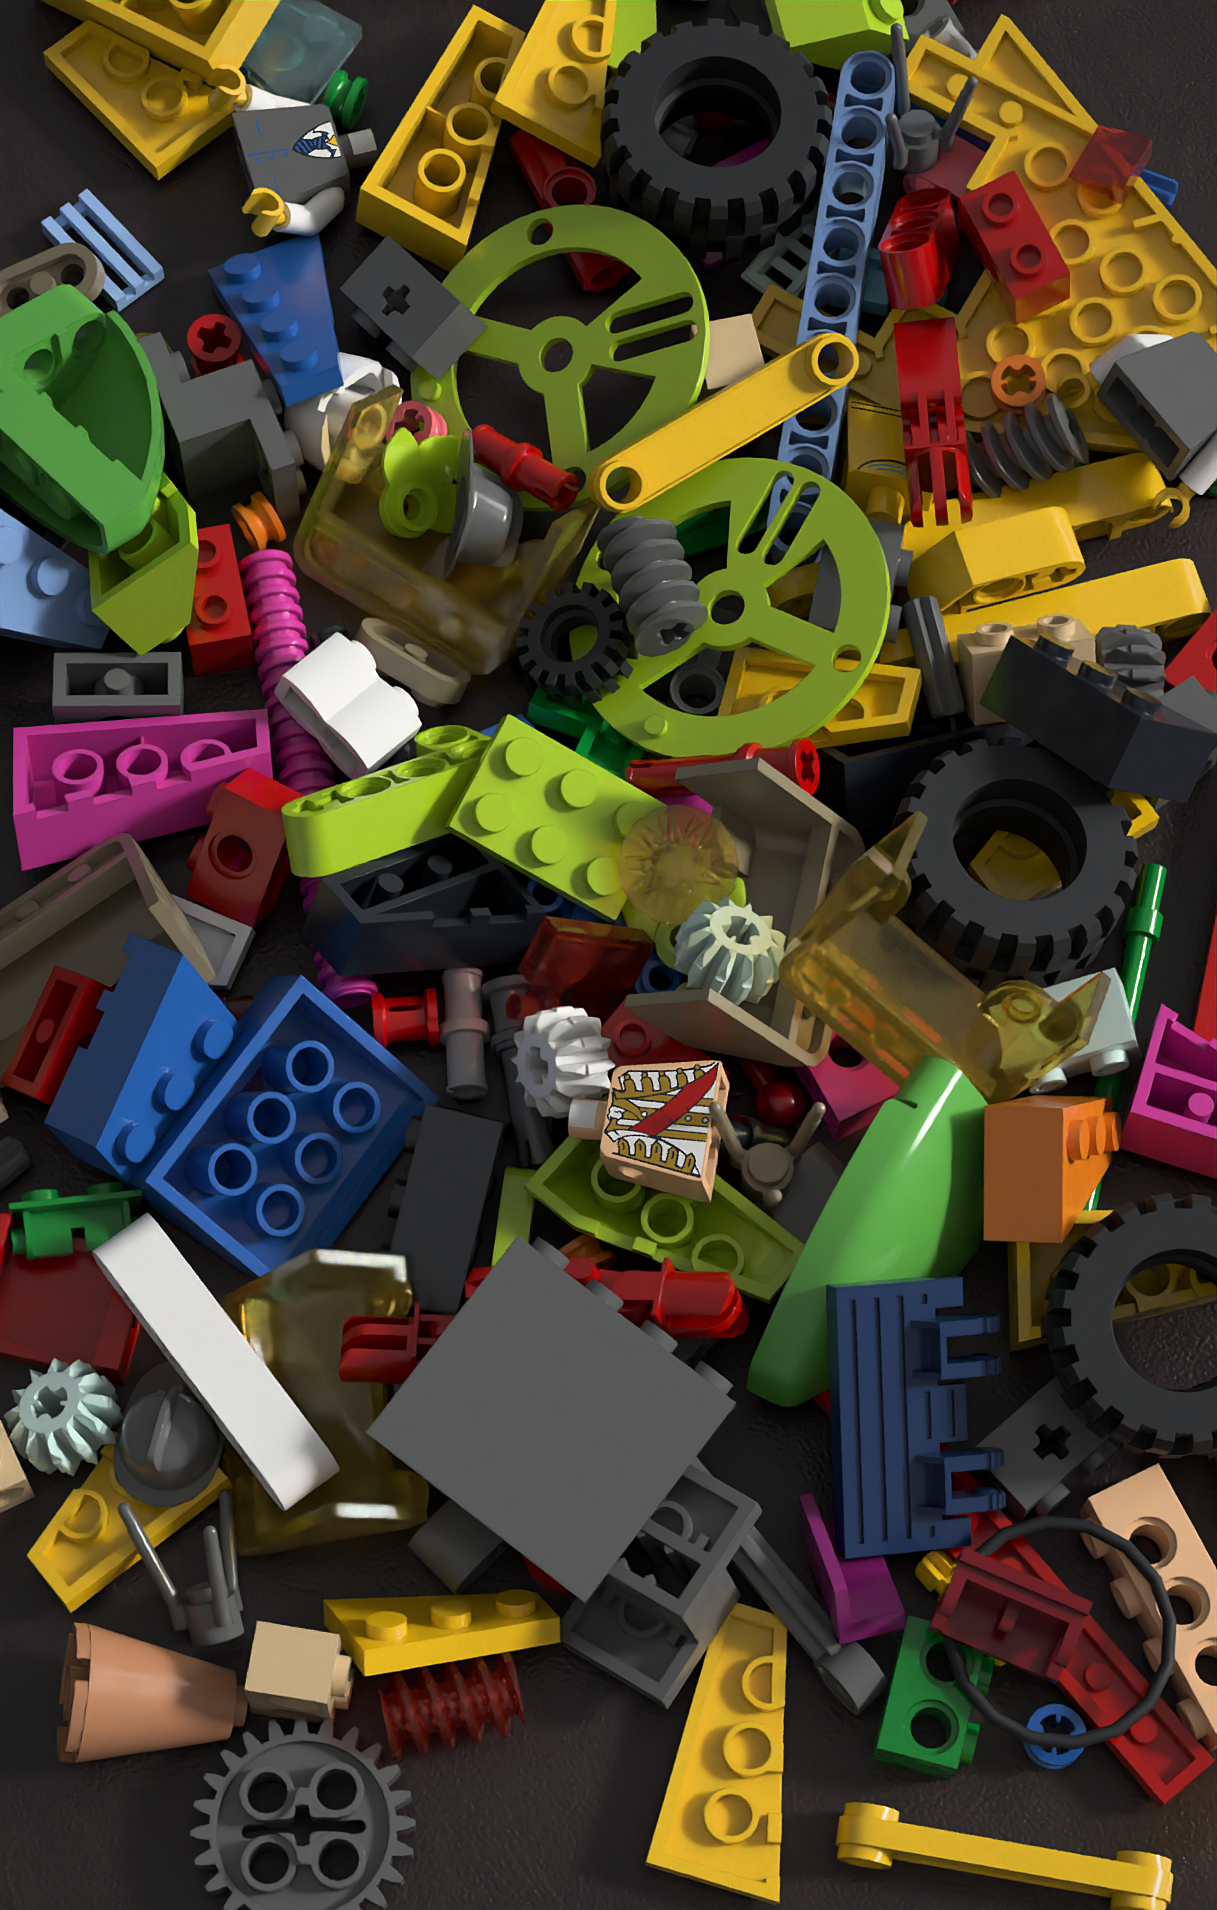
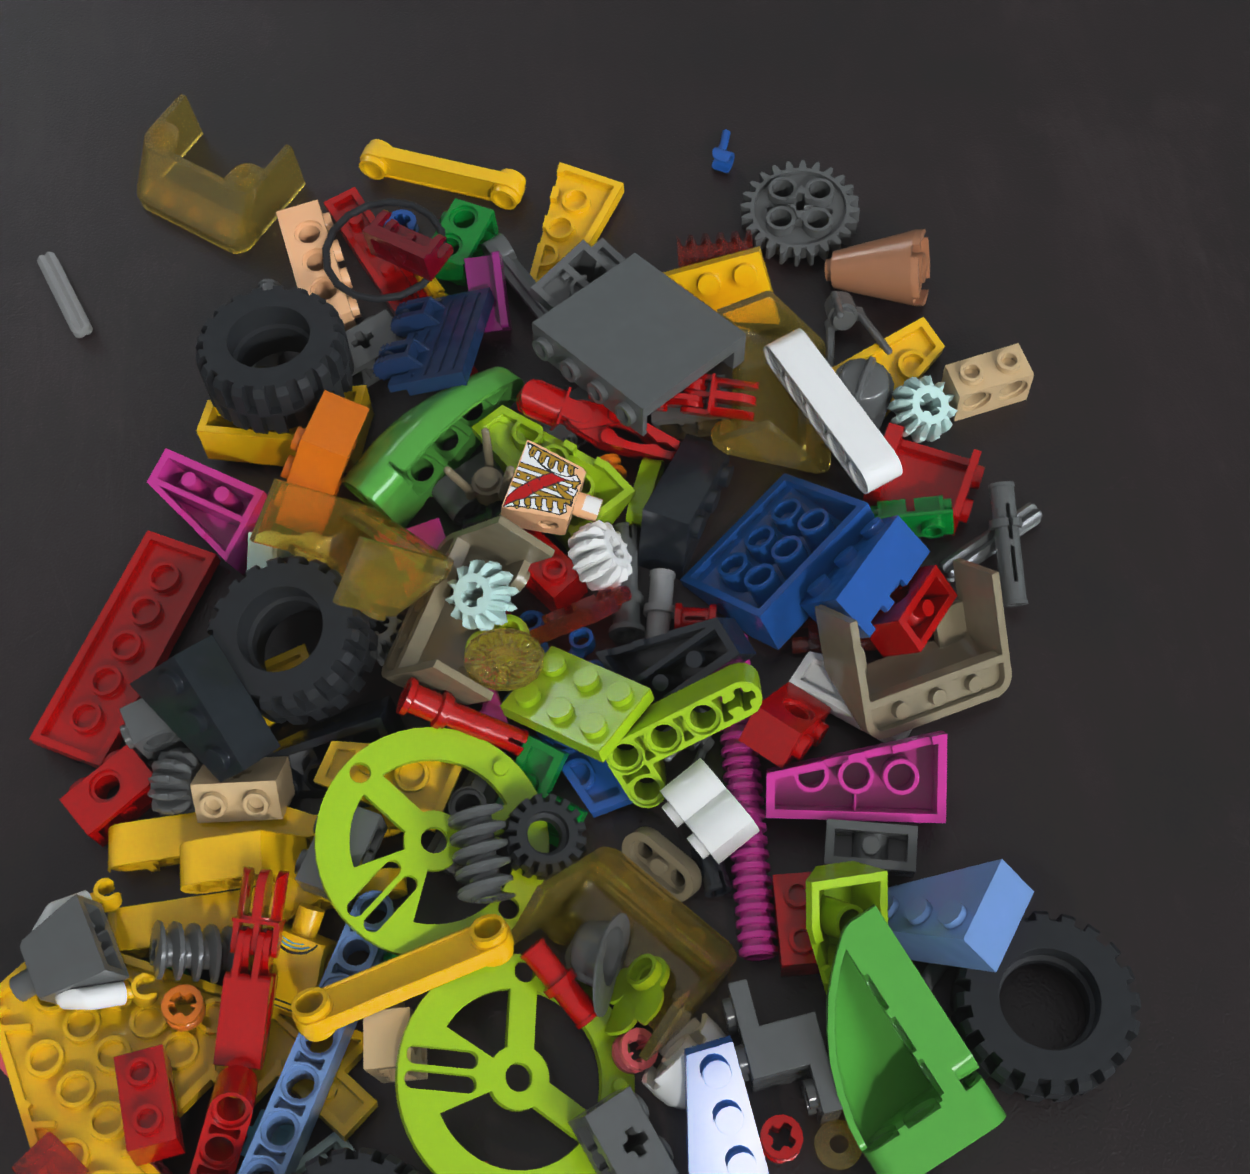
camera: 160 degrees left, 5 degrees down
(258, 522) = (761, 987): orange bush -> none
(298, 1673) = (796, 264): tan brick -> none
(933, 657) = (302, 804): dark grey axle -> none

